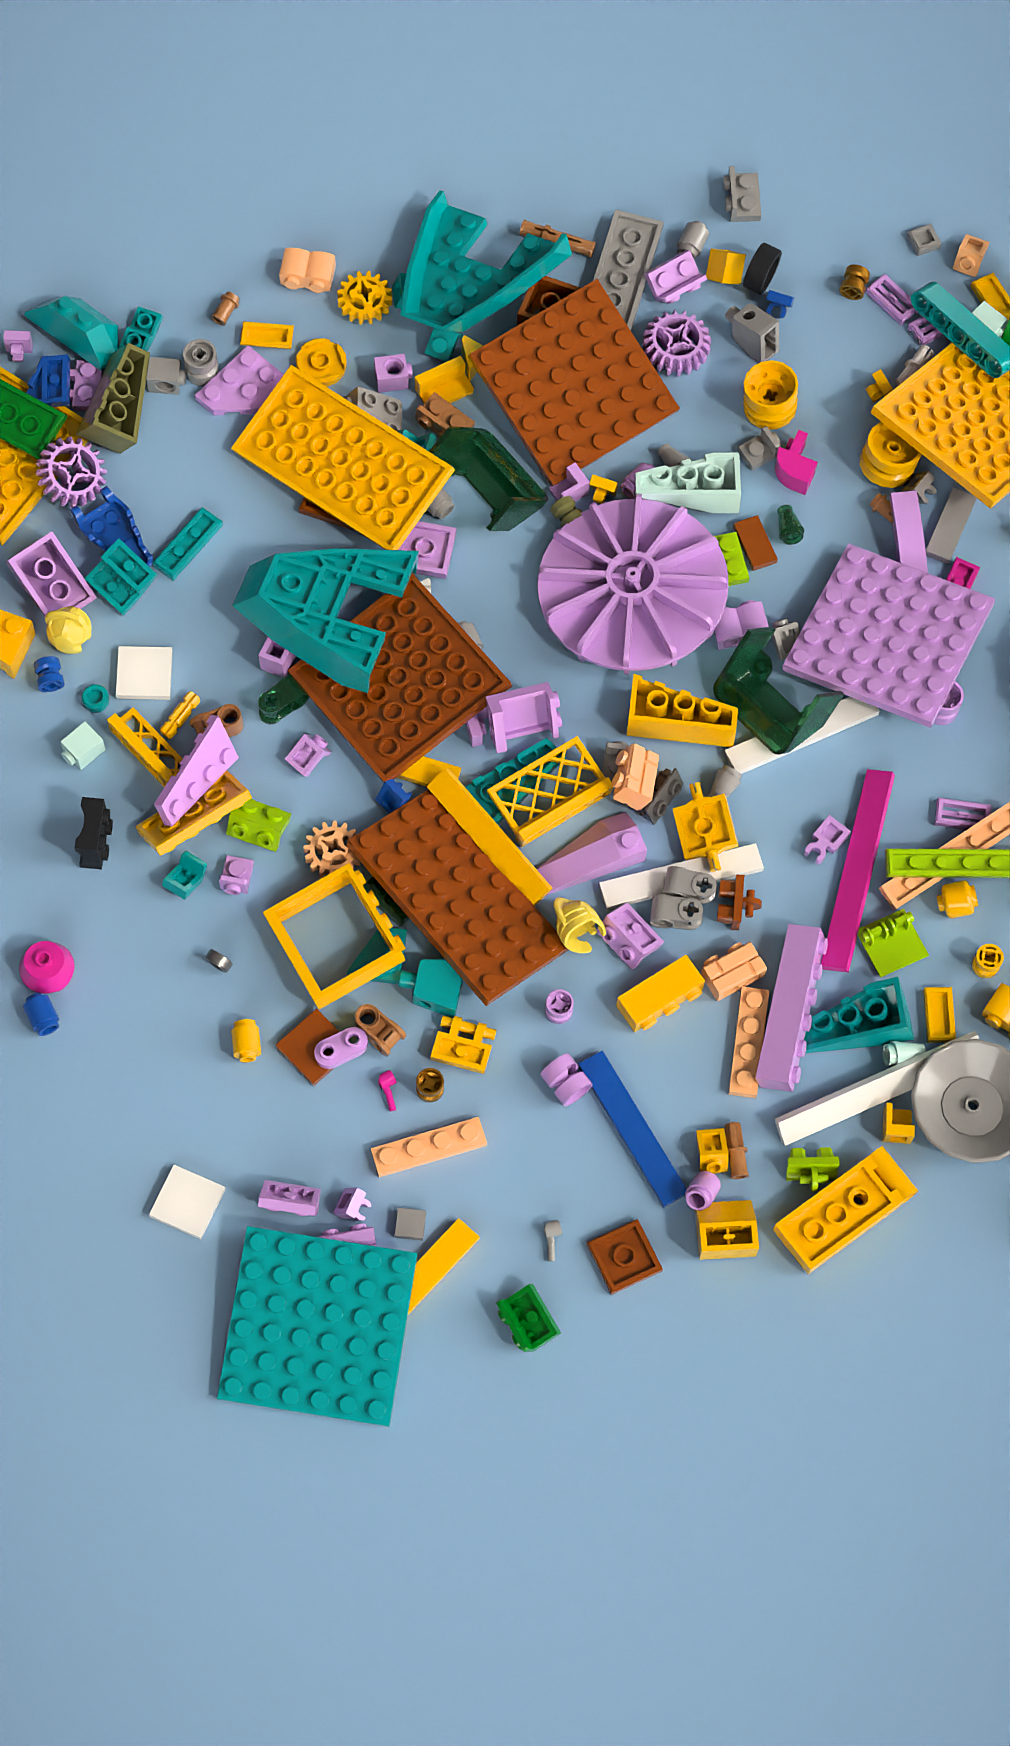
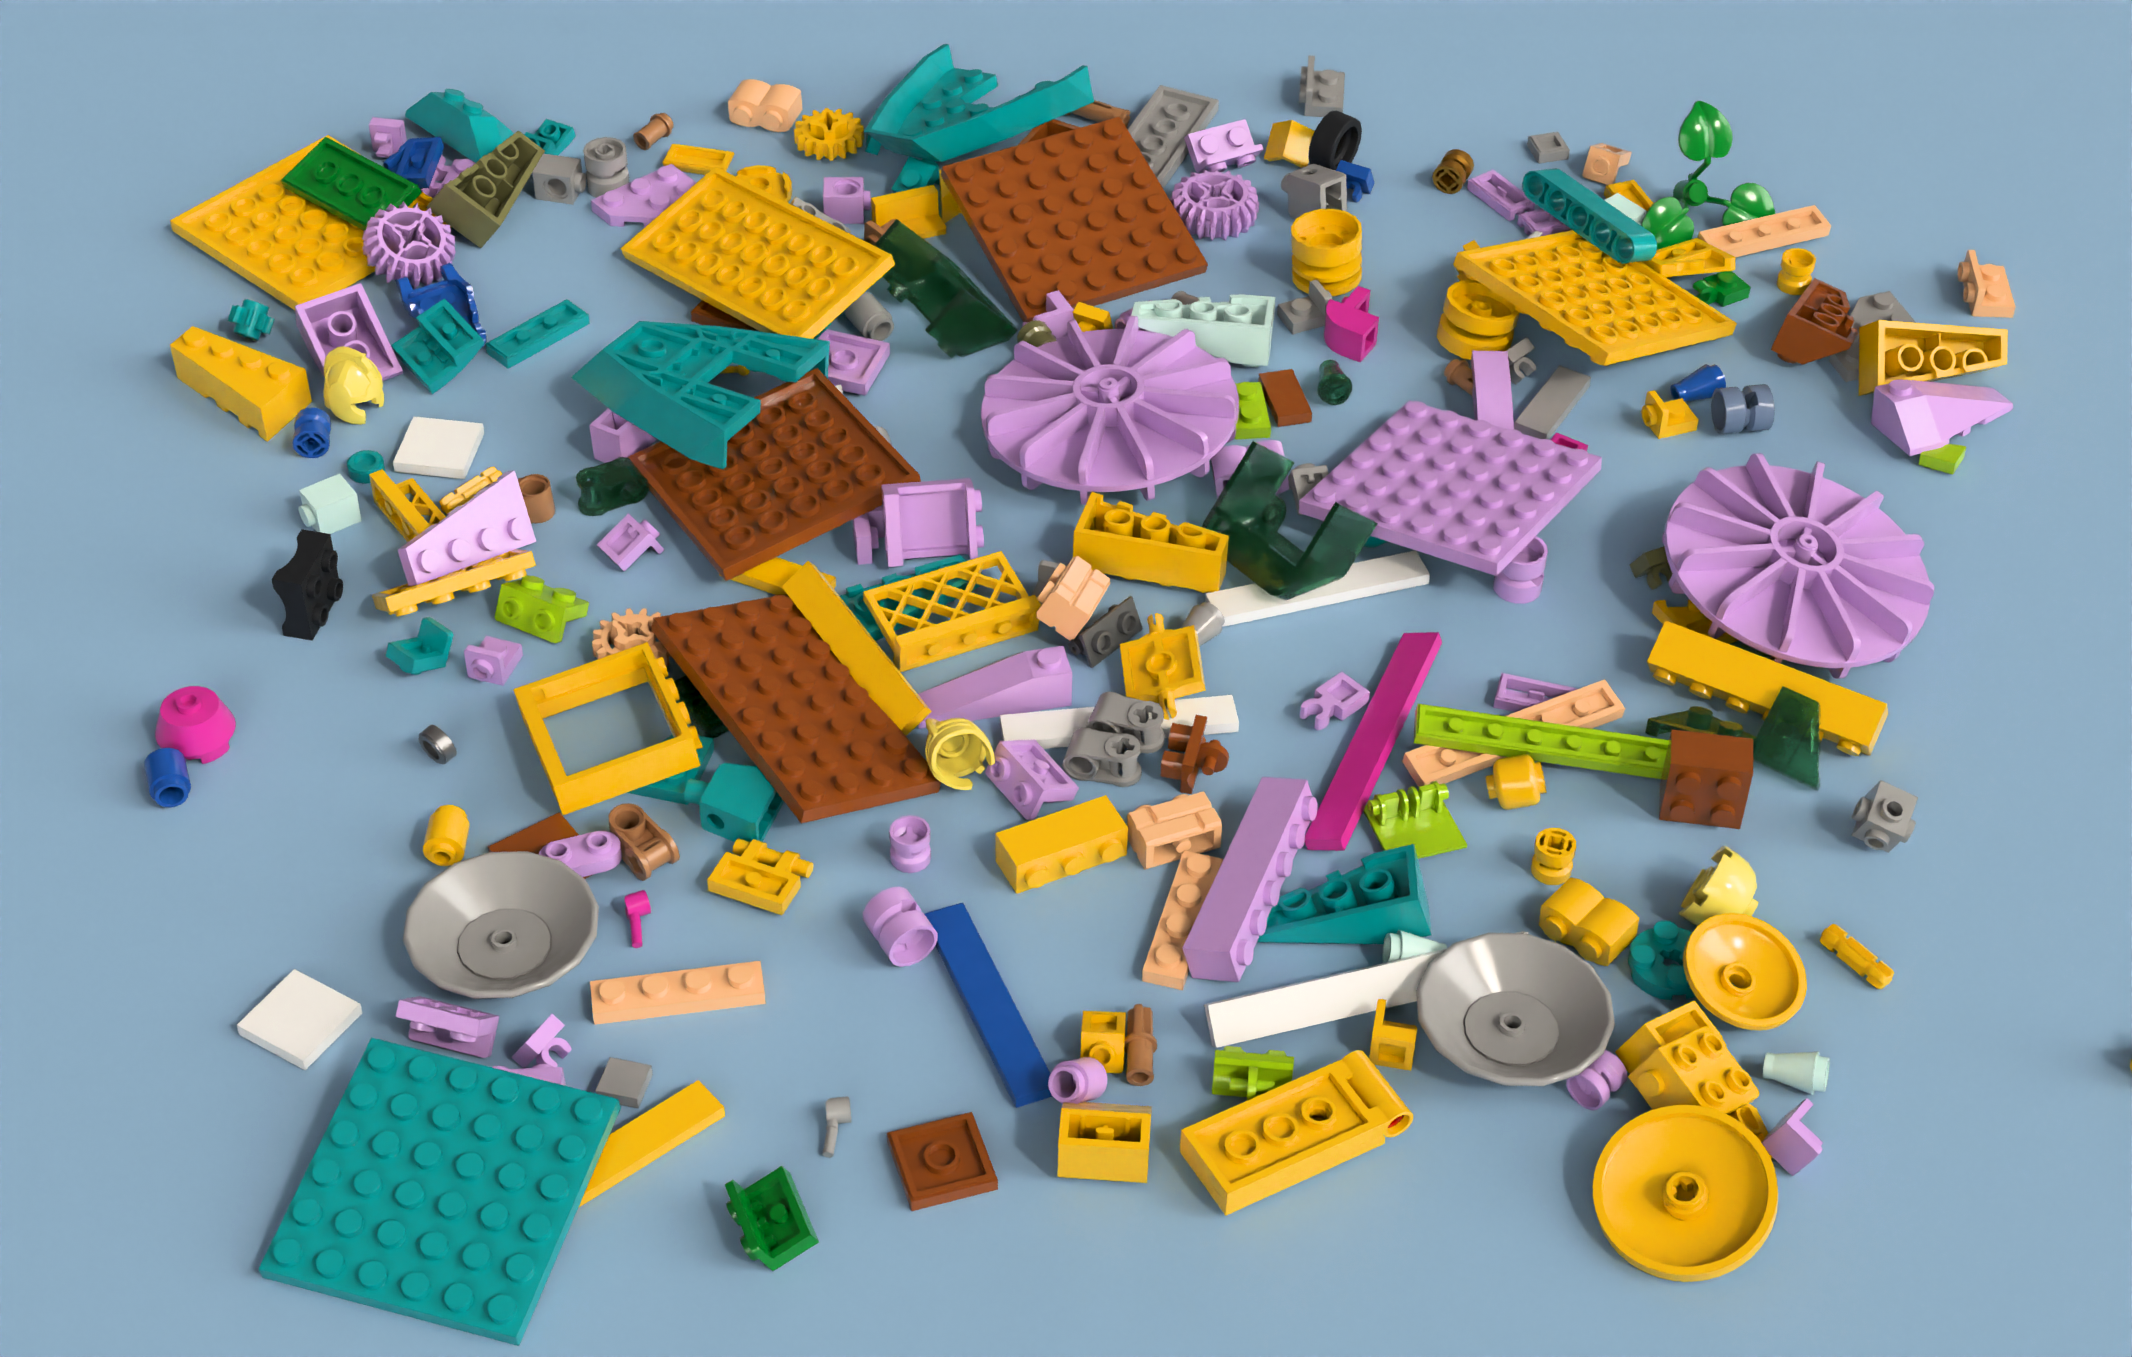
camera: 10 degrees right, 25 degrees down
(299, 1093) = (501, 924): none -> light grey dish
(392, 796) = (731, 589): blue tile -> none
(427, 1080) = (697, 914): pearl gold wheel -> none
(693, 238) = (1257, 115): light grey brick -> none
(939, 1014) = (1473, 909): yellow tile -> none

